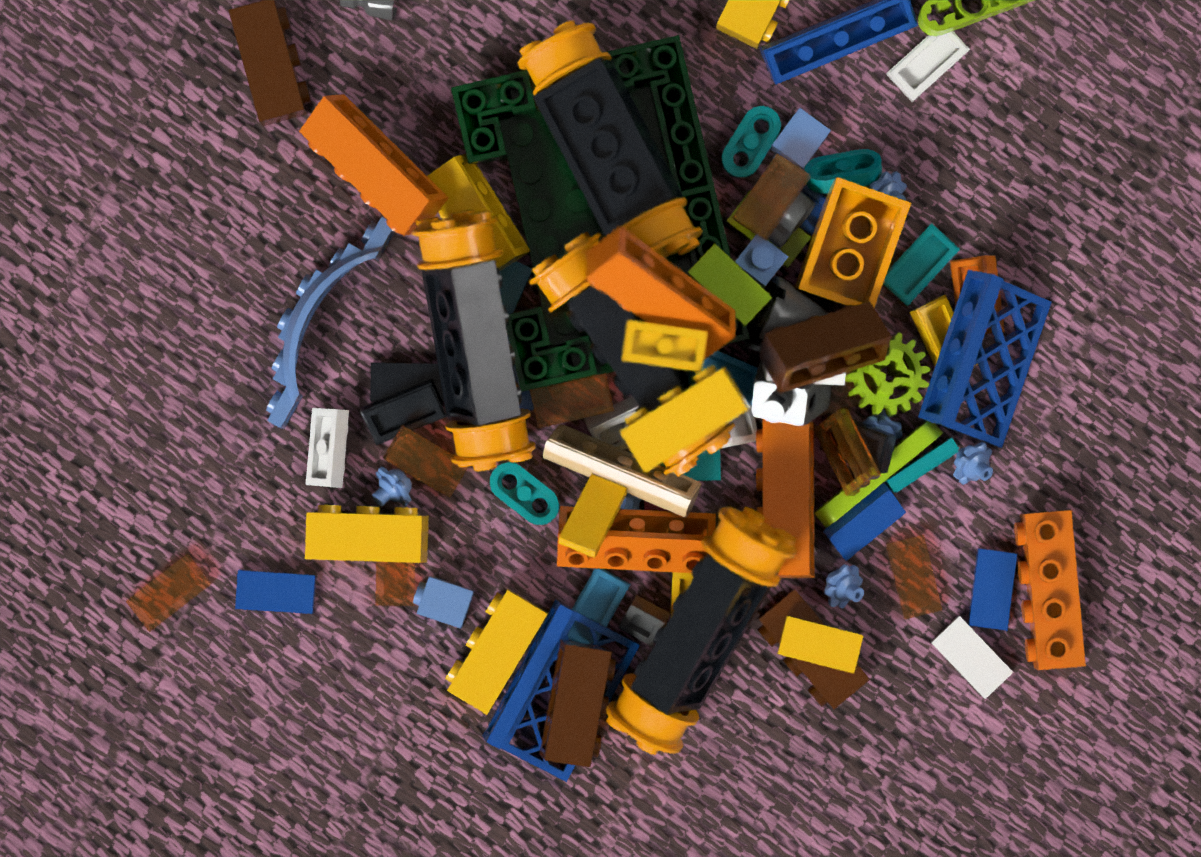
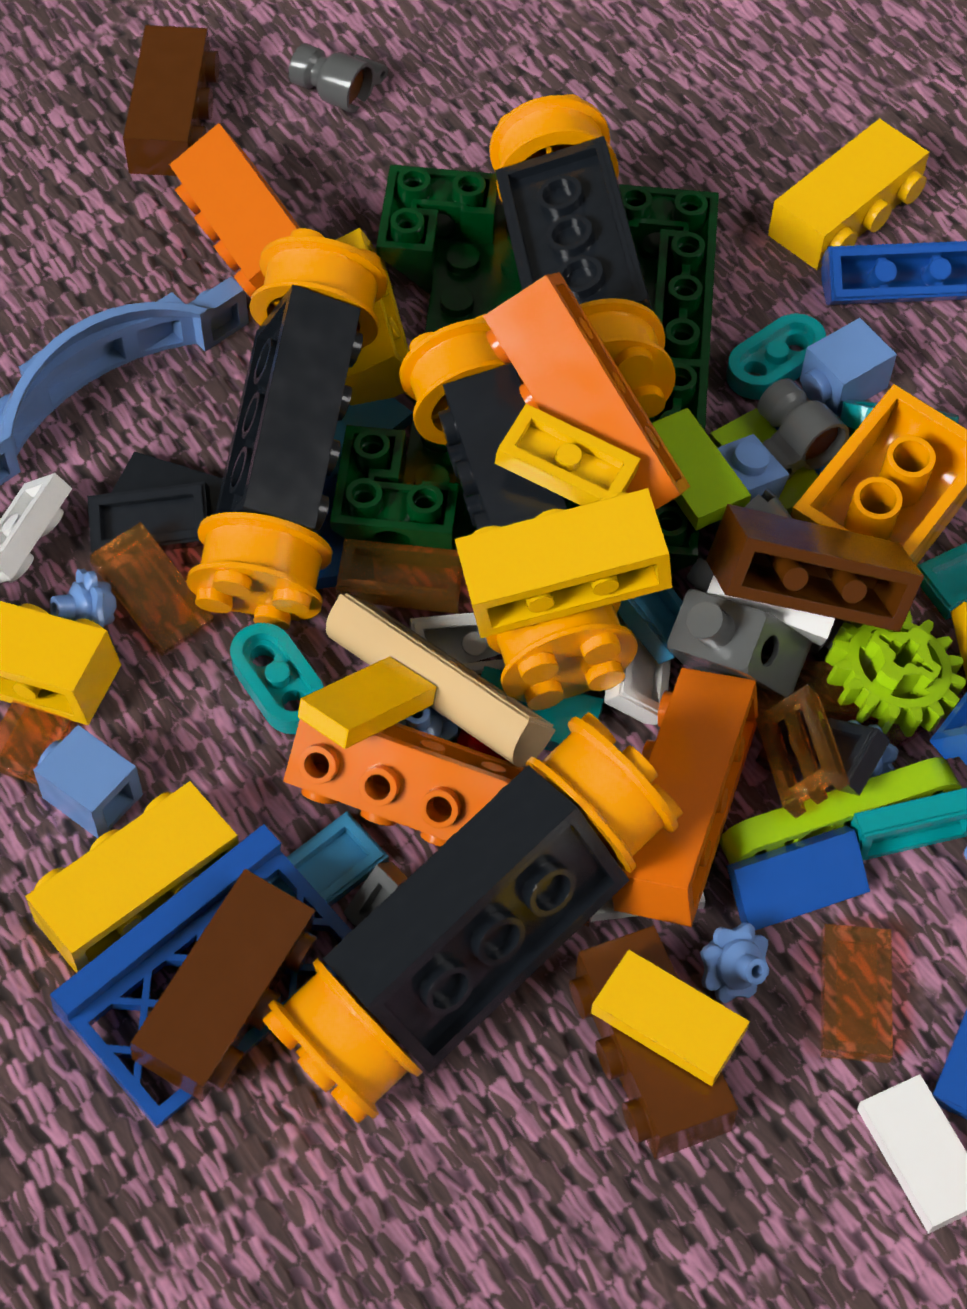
camera: 10 degrees right, 30 degrees down
(771, 197) = (788, 393): clear orange tile -> none

